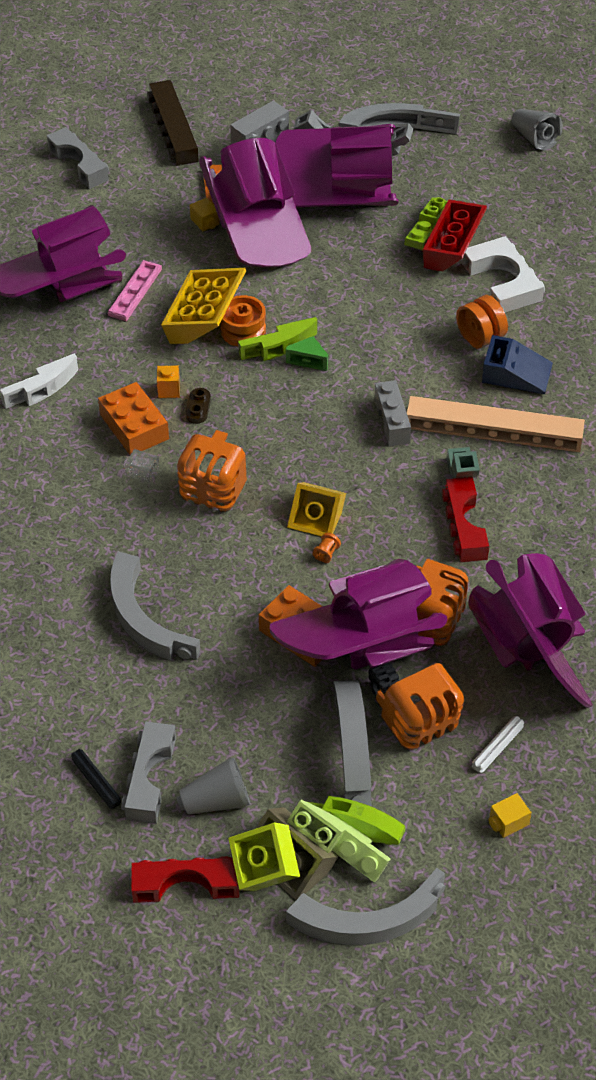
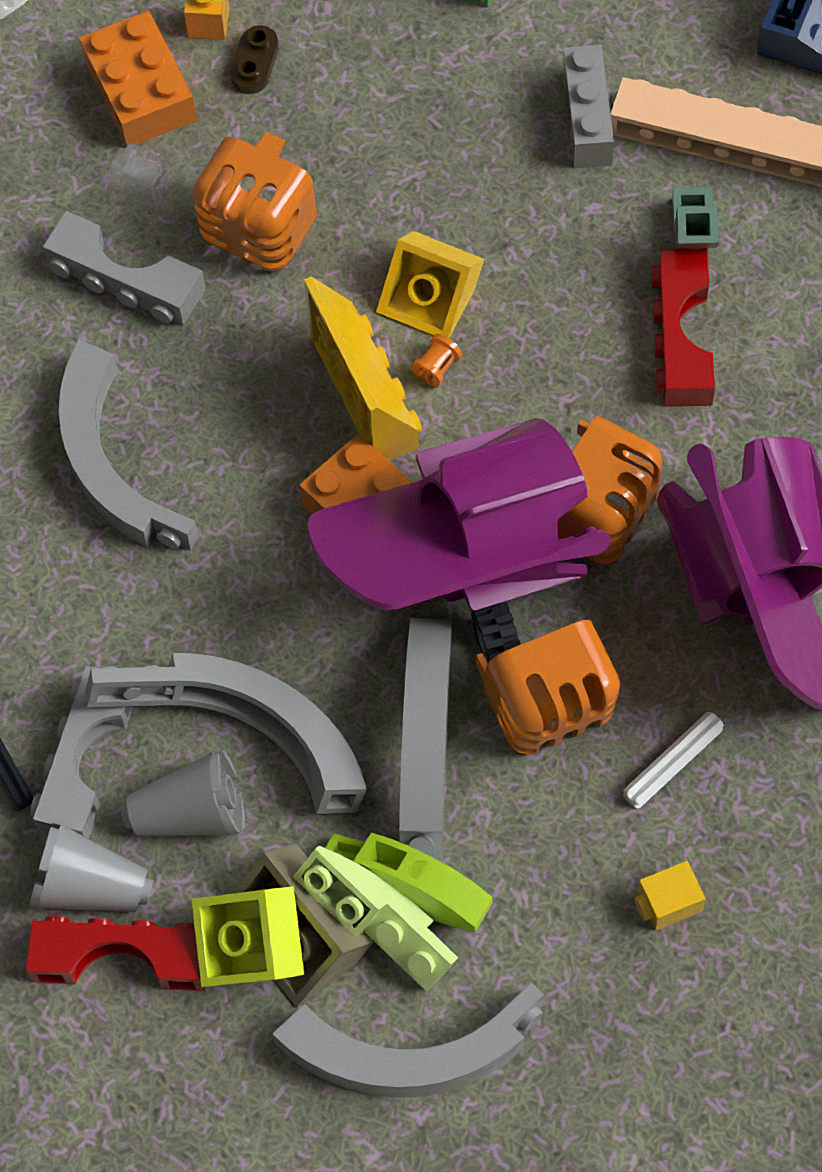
camera: 10 degrees right, 15 degrees up
(160, 836) = (87, 876): none -> light grey cone
(164, 523) = (165, 289): none -> light grey arch
(247, 731) = (251, 697): none -> light grey arch
(282, 554) = (360, 372): none -> yellow slope

